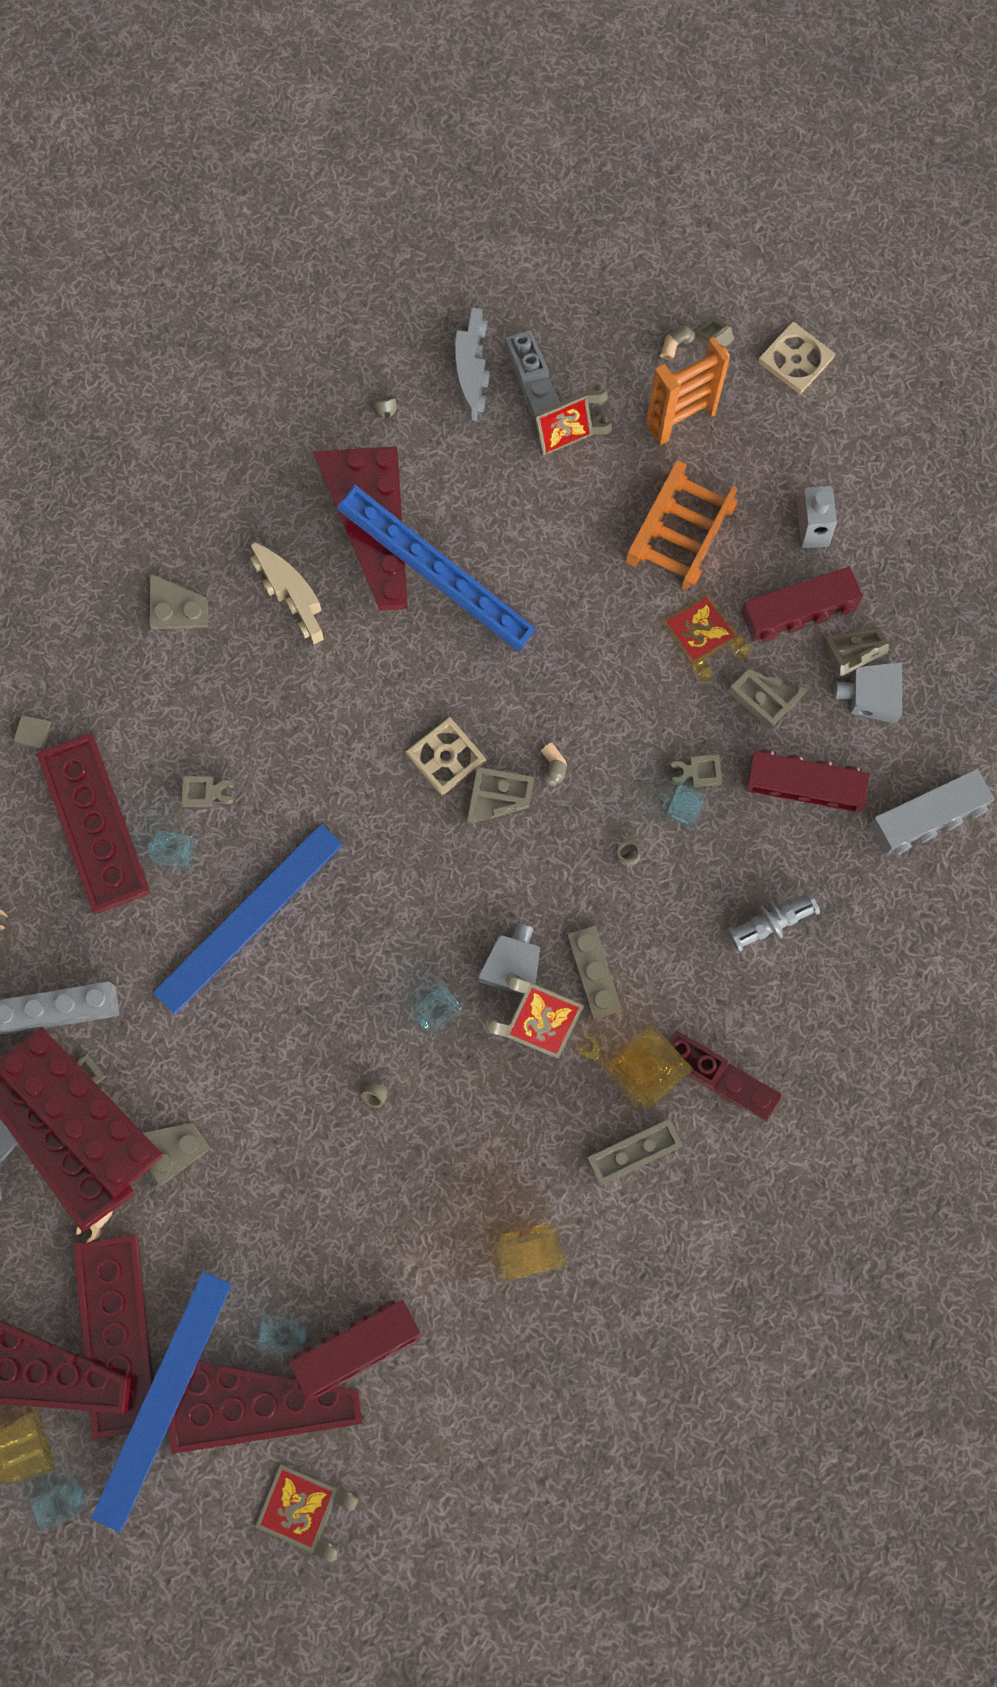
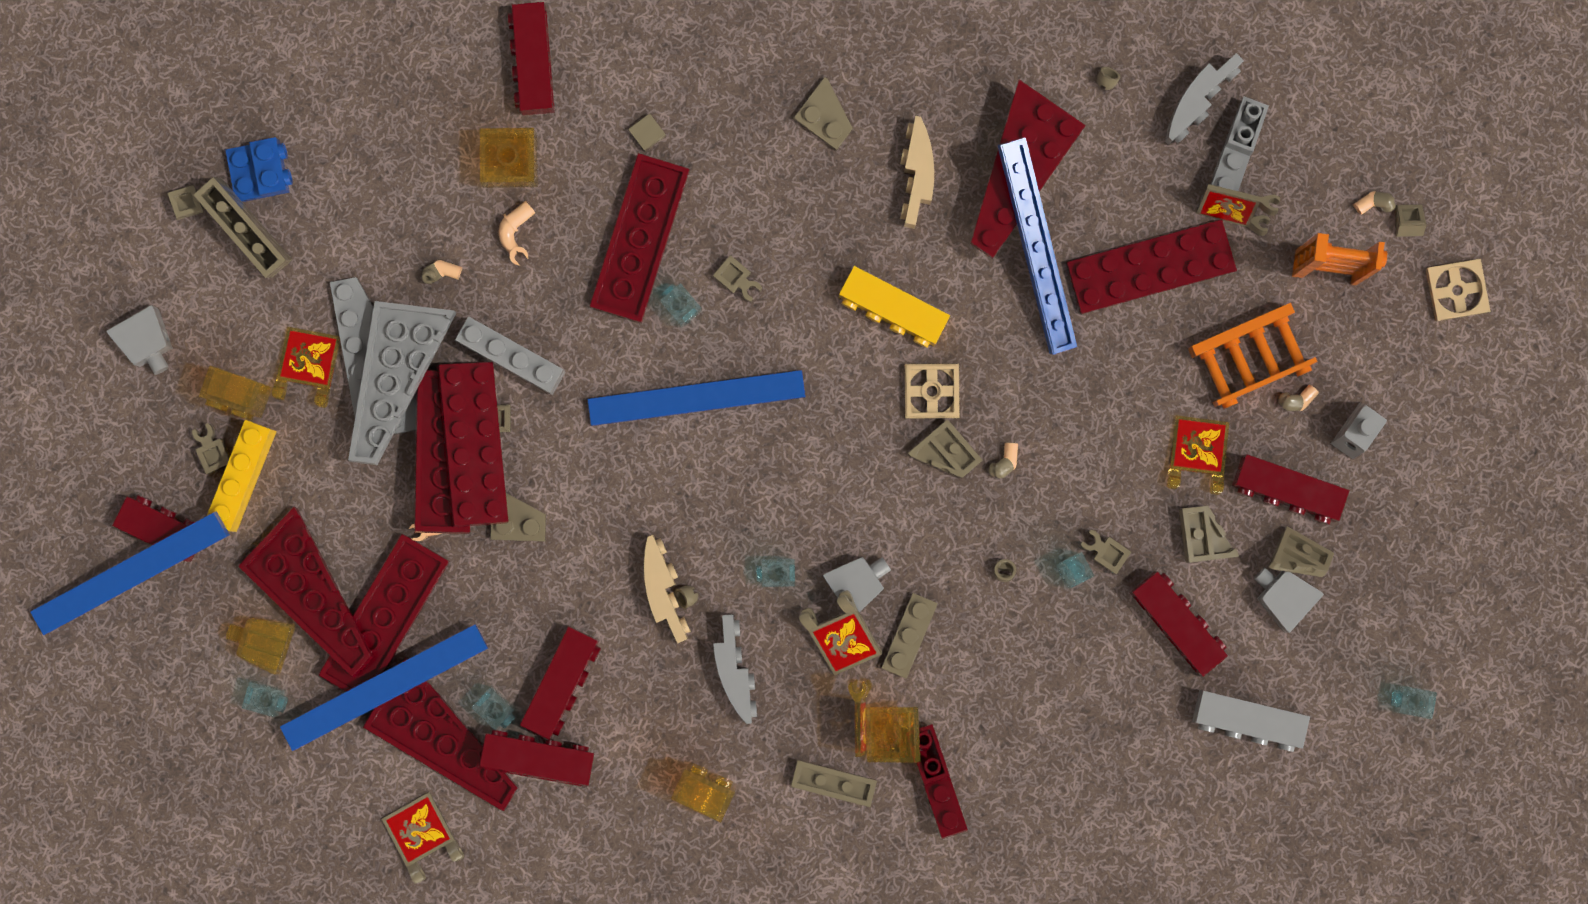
camera: 40 degrees right, 10 degrees up
(322, 1262) = (560, 683): none -> dark red brick
(338, 1098) = (658, 578): none -> tan slope
(357, 711) = (893, 306): none -> yellow brick
(478, 1132) = (735, 681): none -> light grey slope
(542, 522) = (1151, 266): none -> dark red plate
(749, 534) = (1298, 402): none -> dark tan arm
(774, 920) = (1067, 704): light grey piece -> none

